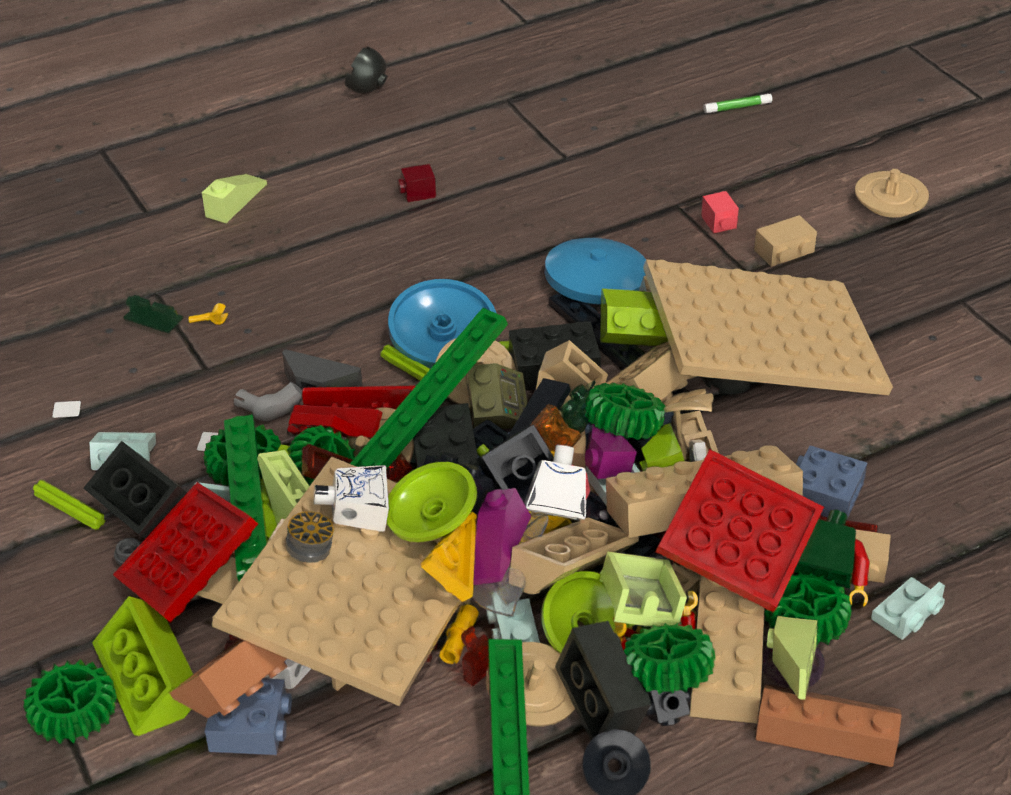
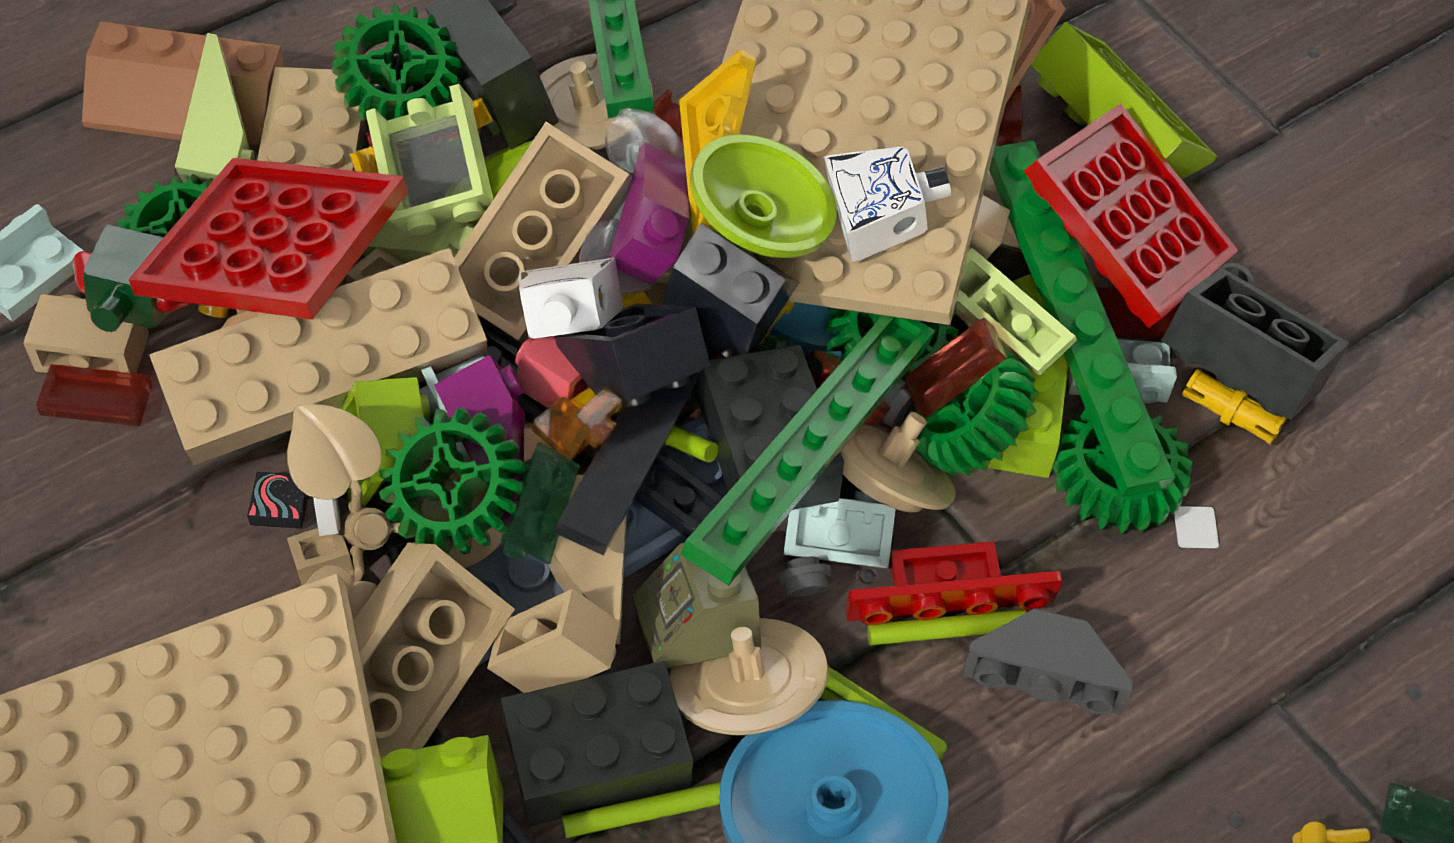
camera: 170 degrees right, 15 degrees up
(69, 504) = (1389, 378): lime axle -> none
(70, 701) = (1201, 58): green gear -> none
(105, 442) = (1338, 478): light aqua bracket -> none
(270, 405) = (1115, 582): light grey arm -> none
(309, 539) = (945, 104): dark grey wheel -> none
(348, 421) = (993, 494): red bracket -> none
(831, 479) = (105, 458): sand blue brick -> none

